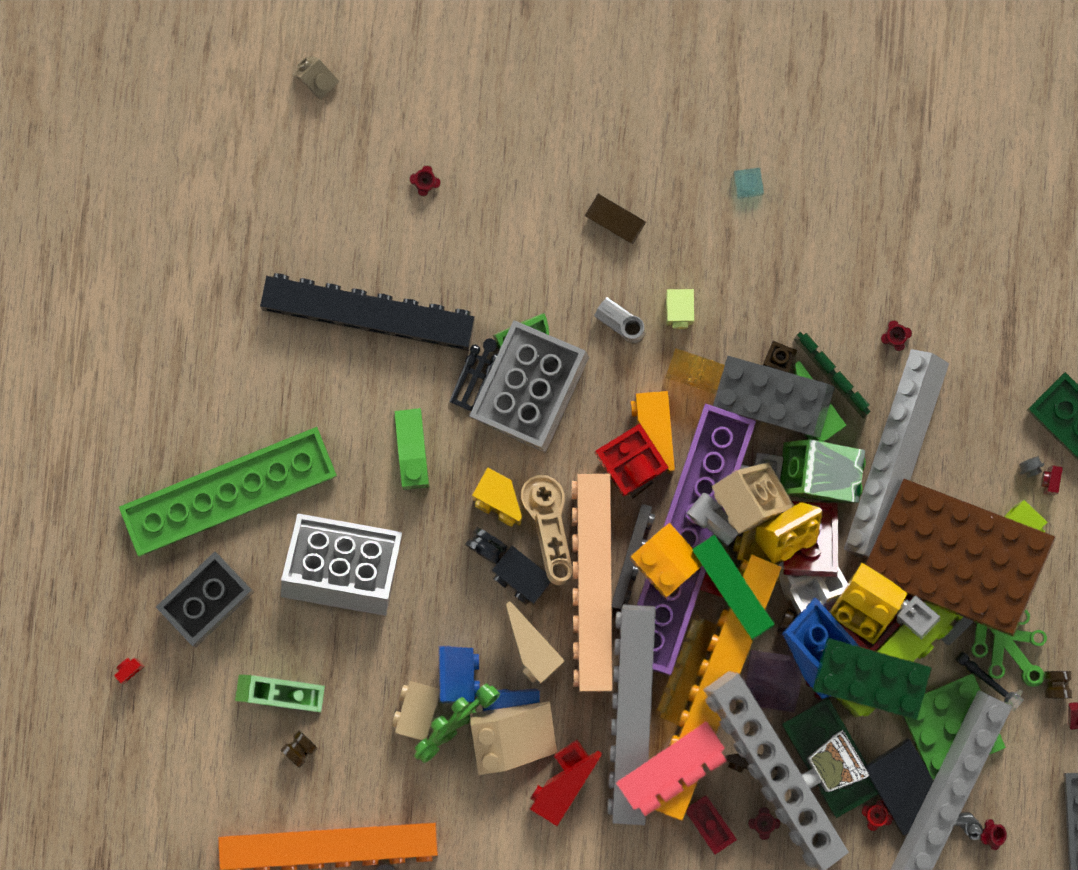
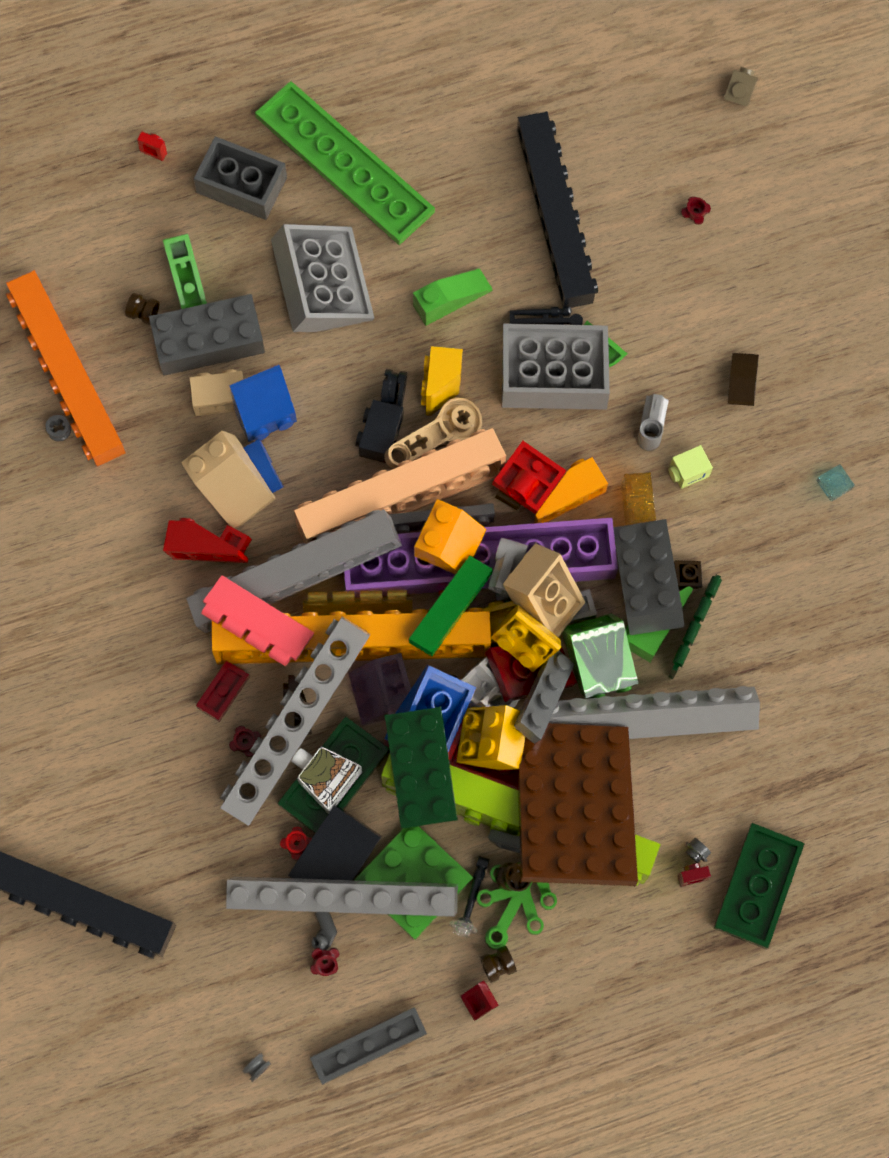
camera: 65 degrees right, 10 degrees down
(354, 697) = (207, 334): none -> dark grey brick
(446, 730) = (216, 420): bright green plant -> none
(535, 652) = (317, 460): tan slope -> none
(852, 543) = (543, 696): none -> dark grey plate
(895, 328) = (766, 667): dark red plate -> none
(917, 617) = (499, 785): light grey bracket -> none
(990, 641) = (503, 878): none -> dark brown wheel

